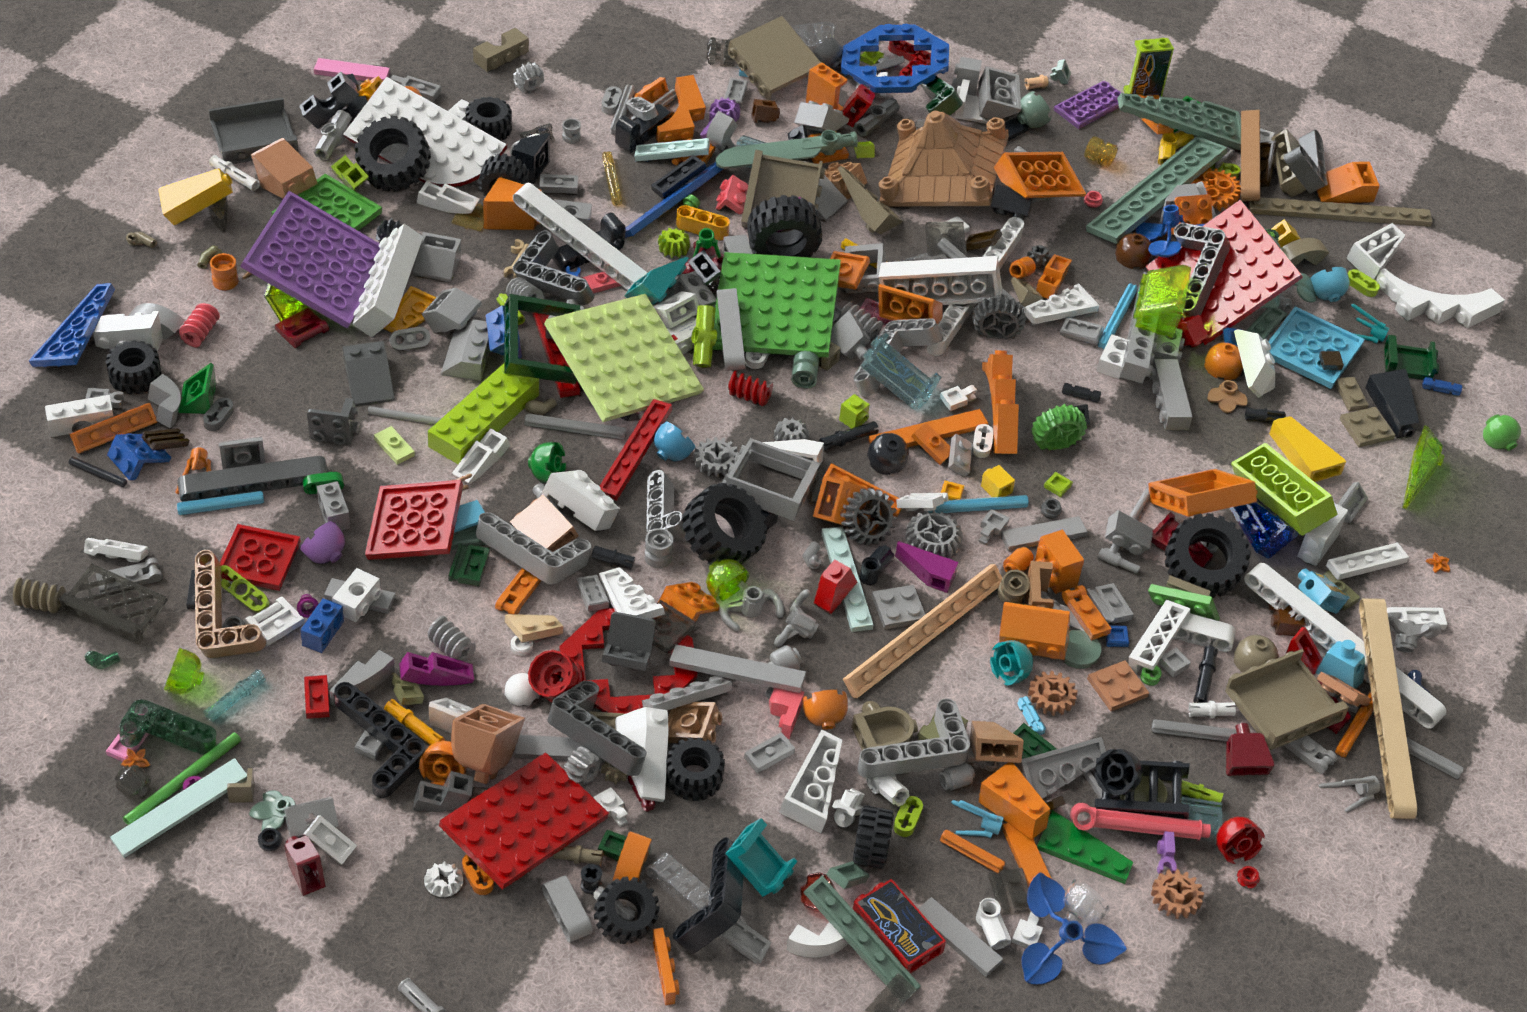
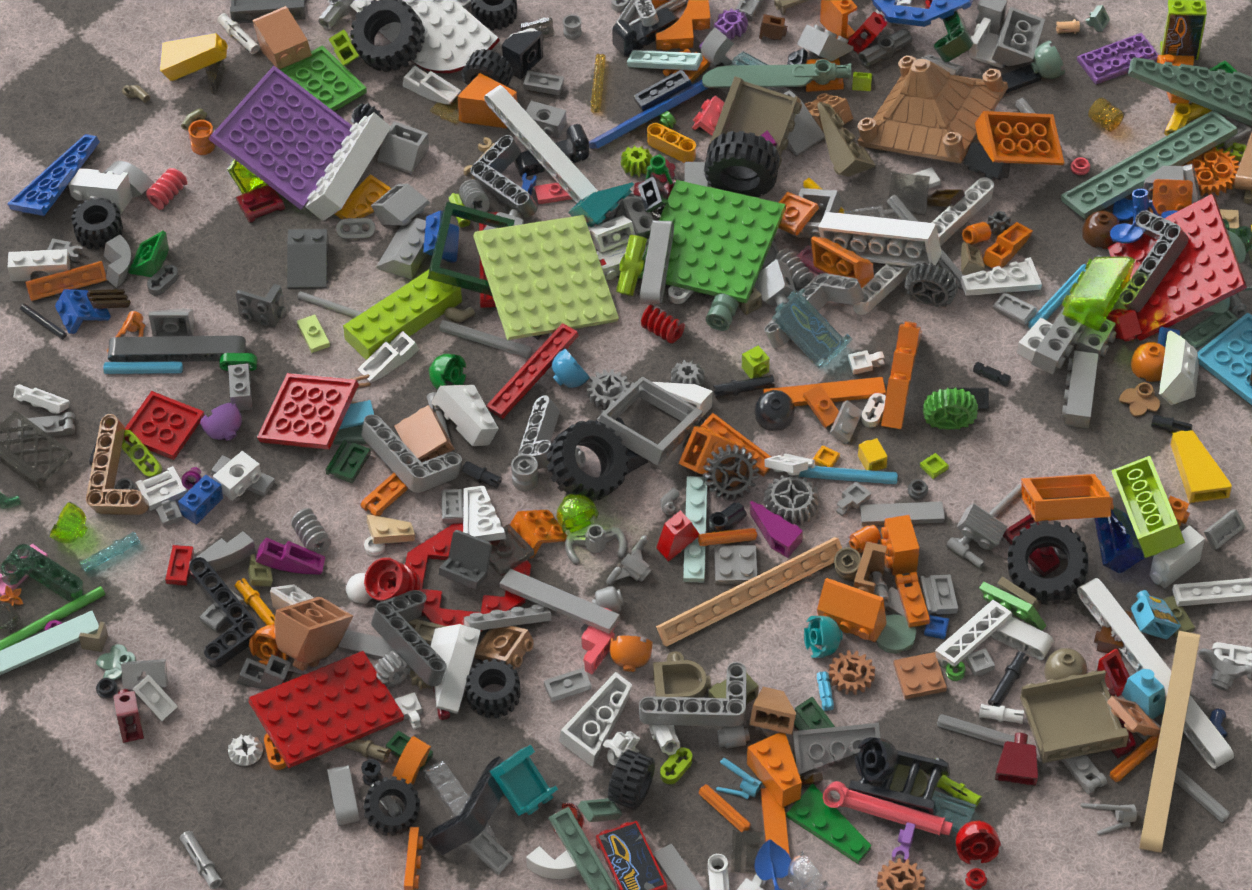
camera: 20 degrees right, 5 degrees up
(289, 645) = (169, 513): none -> light grey tile
(883, 580) = (727, 537): none -> orange axle

